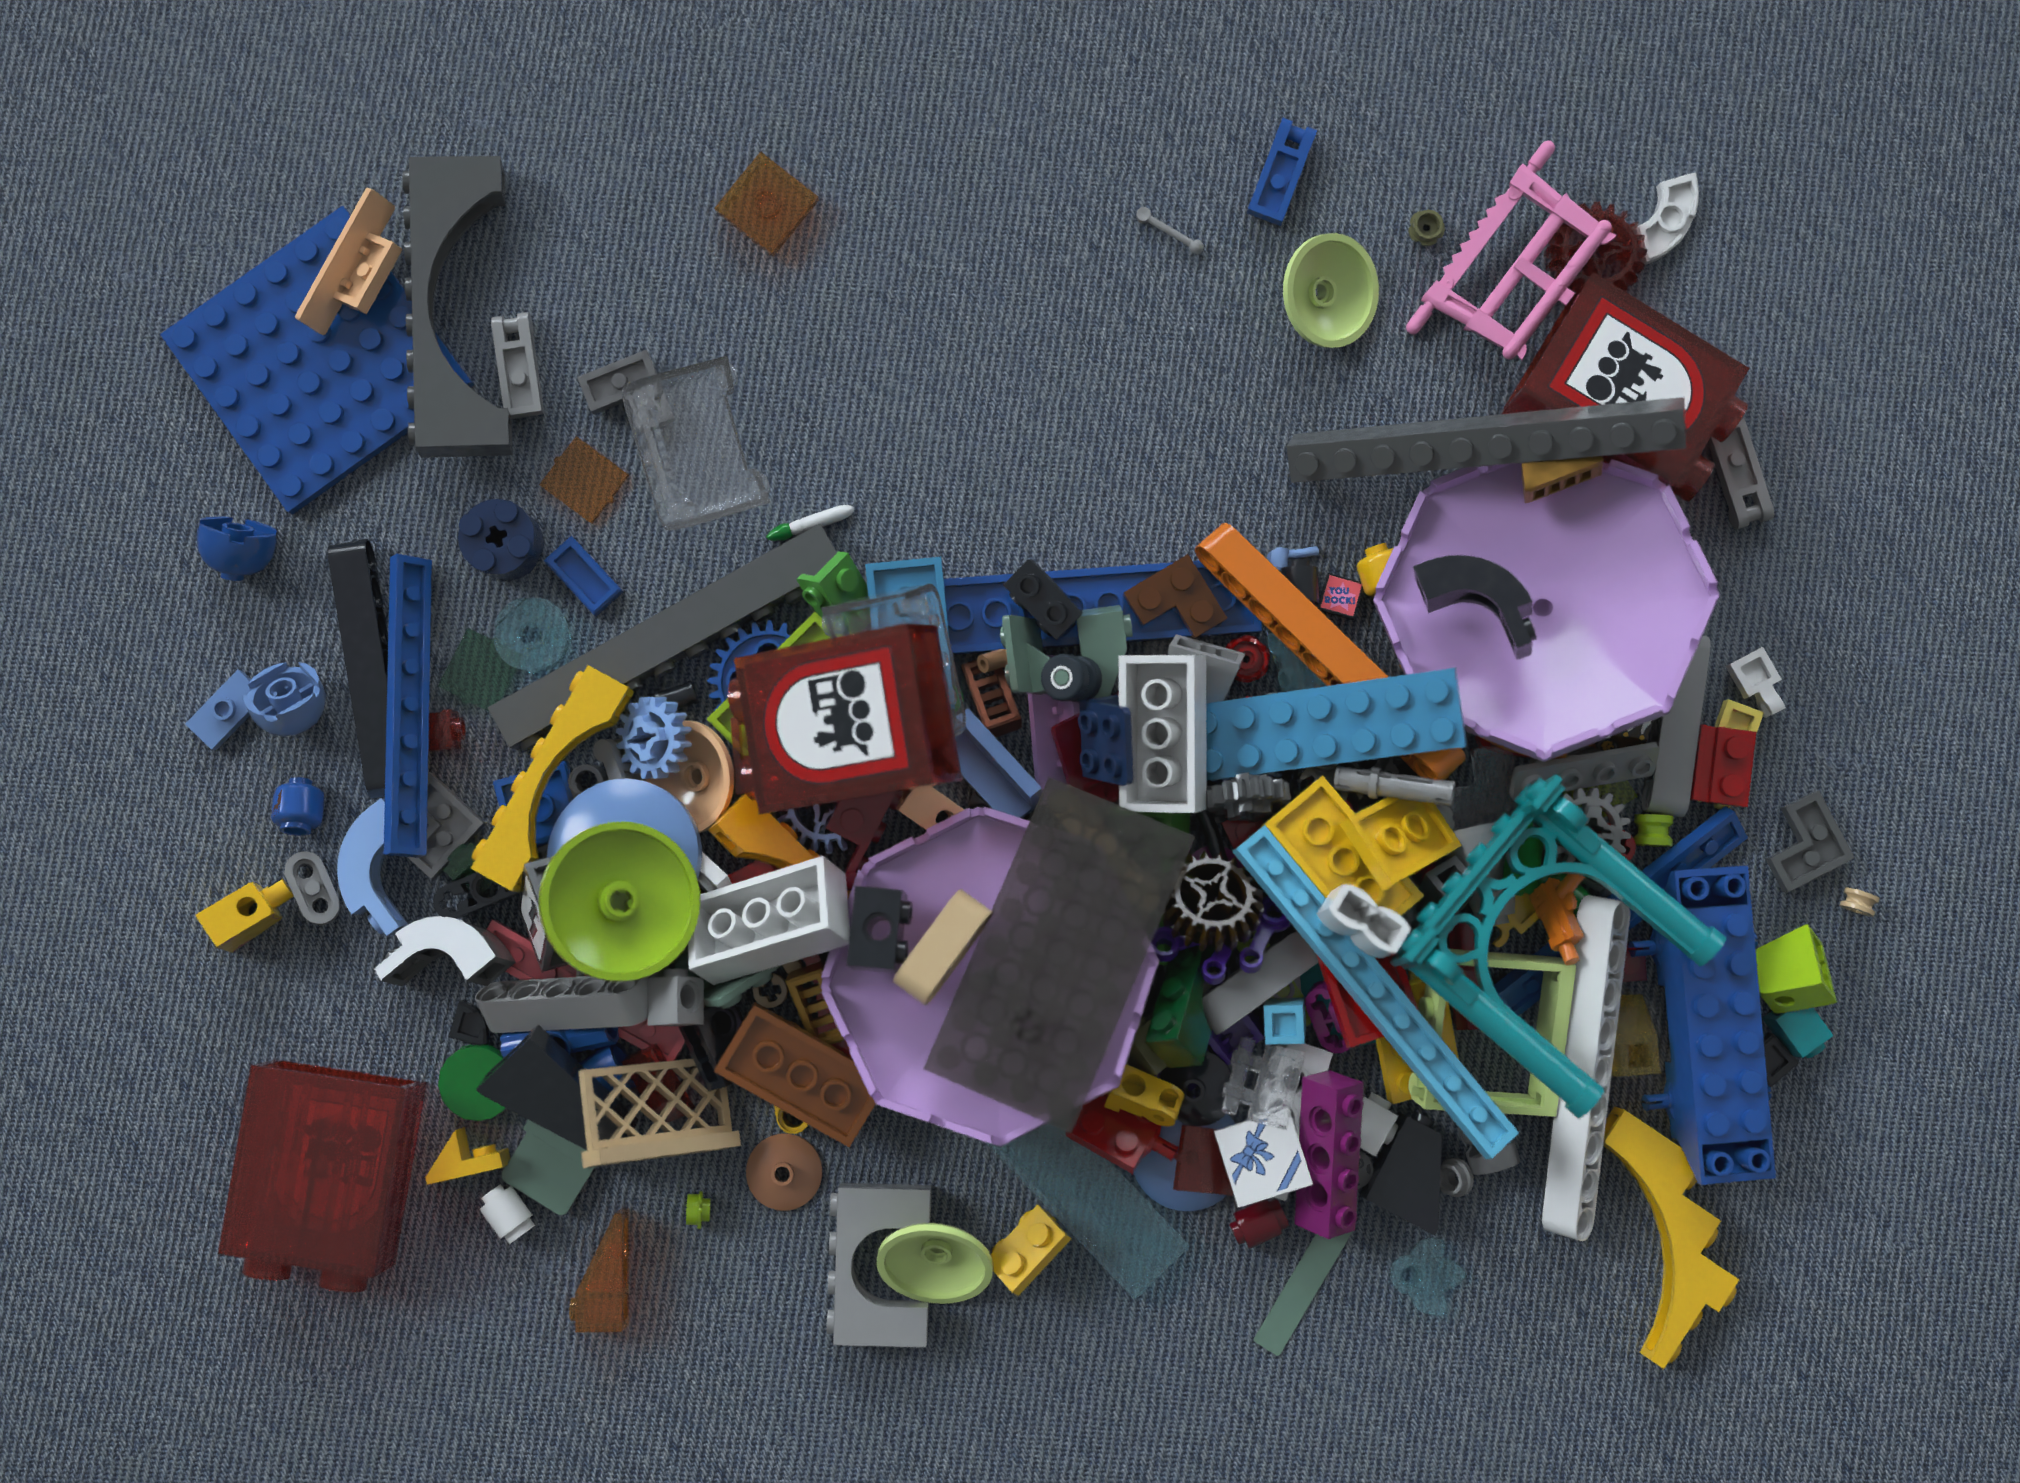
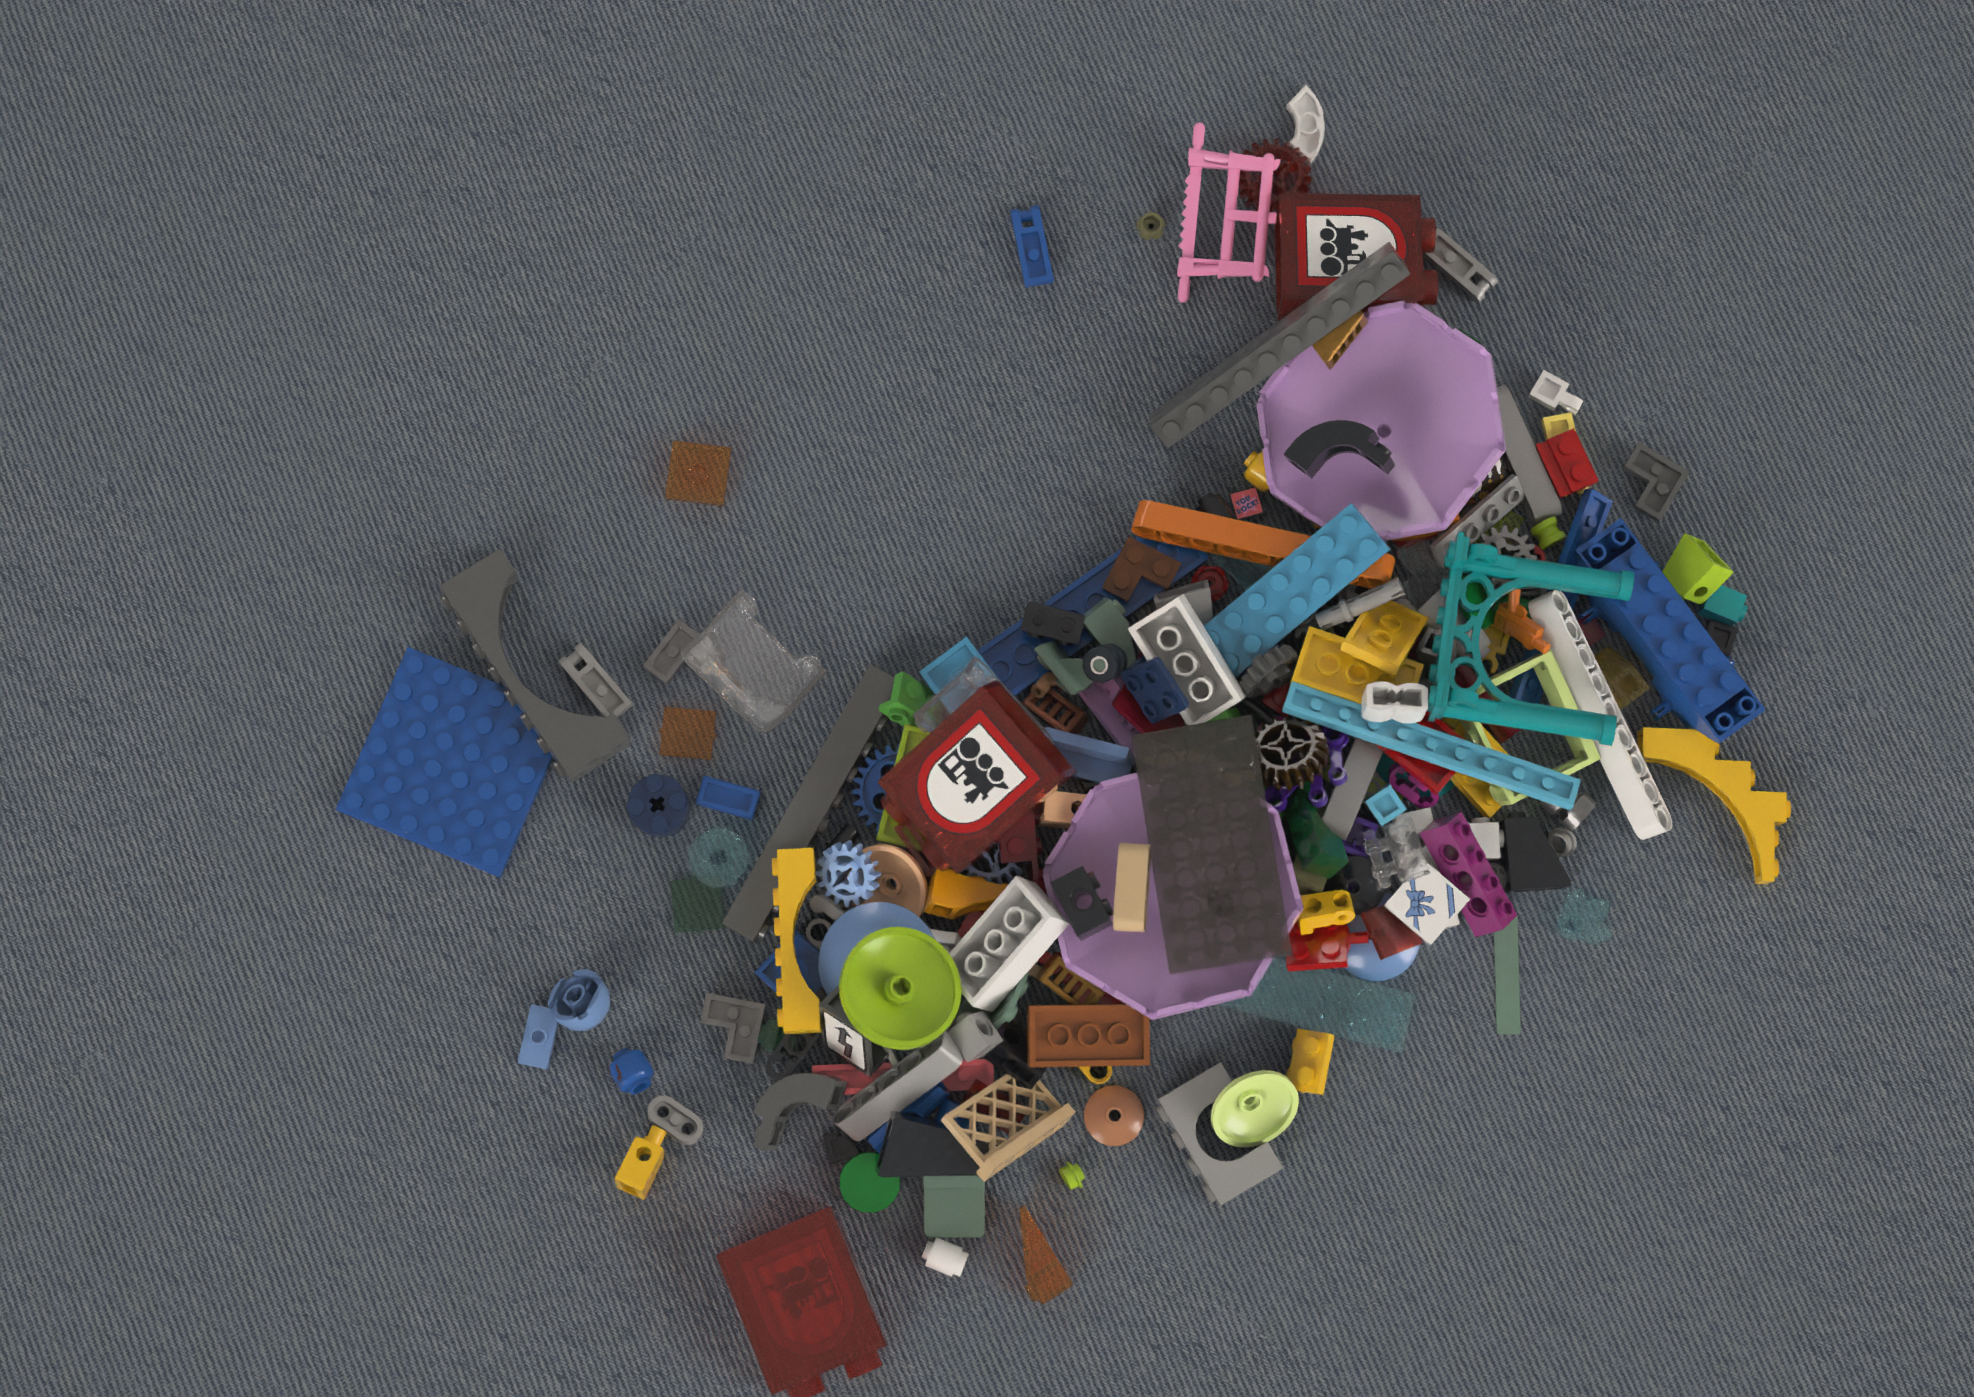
camera: 30 degrees left, 5 degrees down
(235, 547) = (480, 920): blue cylinder -> none
(354, 266) = (448, 681): light nougat bracket -> none
(360, 870) = (694, 1074): light blue arch -> none
(364, 650) = (622, 948): black beam -> none
(407, 707) = (667, 955): blue plate -> none
(446, 730) = (694, 963): clear red bracket -> none
(457, 1161) = (888, 1245): yellow slope -> none
(765, 1000) = (1030, 989): tan bush -> none
(826, 517) = (860, 669): white piece -> none
(1143, 216) = (957, 329): light grey hinge -> none
(1259, 1223) = (1451, 951): dark red brick -> none
(1280, 555) = (1190, 500): light blue hand -> none
(1345, 289) = (1124, 301): yellowish green dish -> none
(1859, 902) = (1711, 498): tan bush -> none

